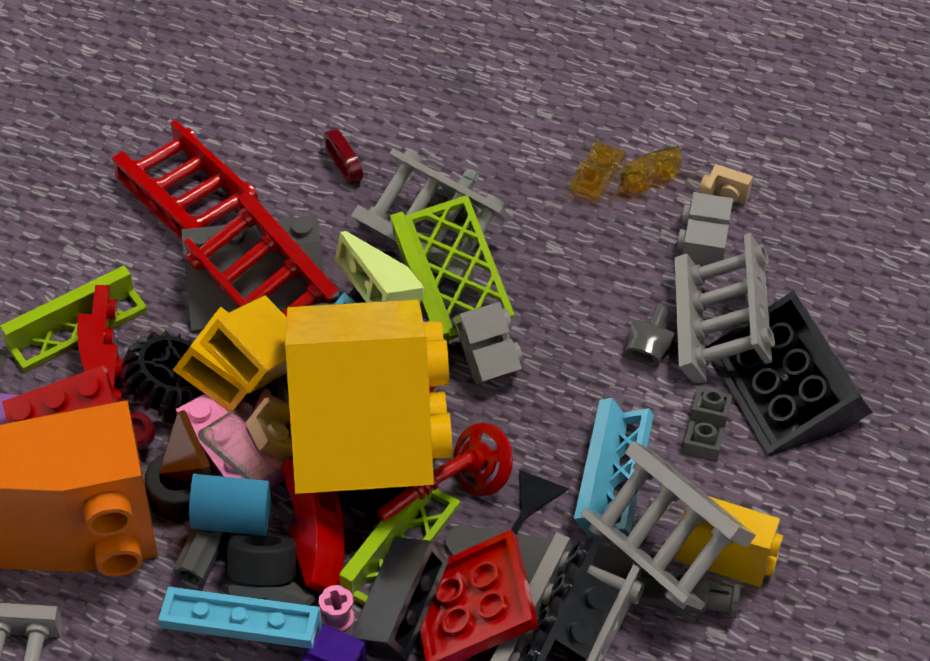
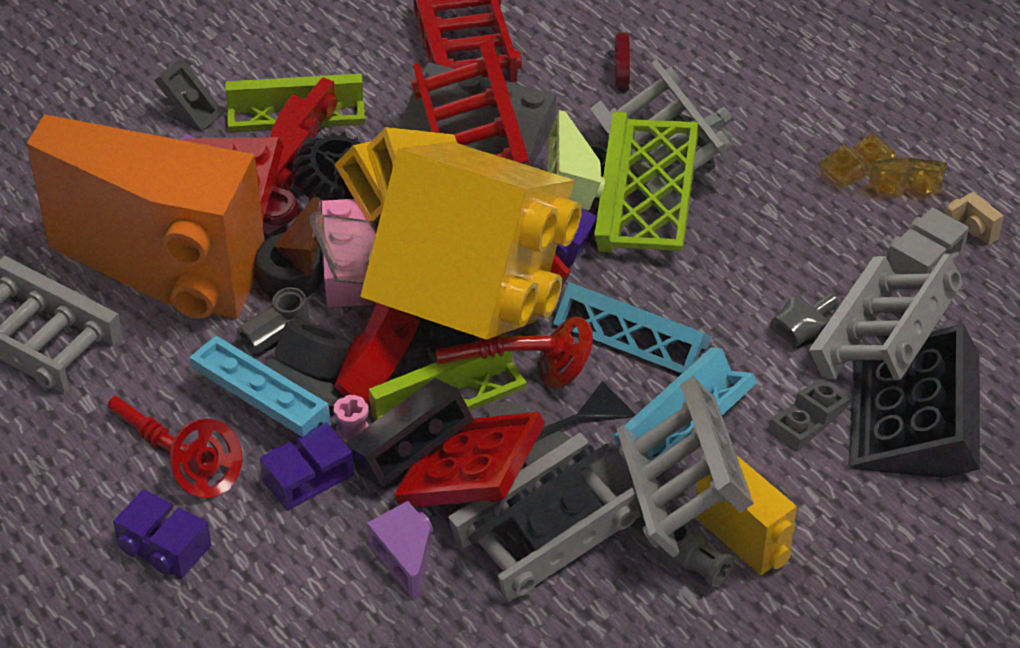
camera: 30 degrees right, 5 degrees down
(229, 504) = (308, 290): dark azure brick -> none
(487, 342) = (639, 258): light grey piece -> none
(521, 396) = (642, 319): none -> medium azure fence

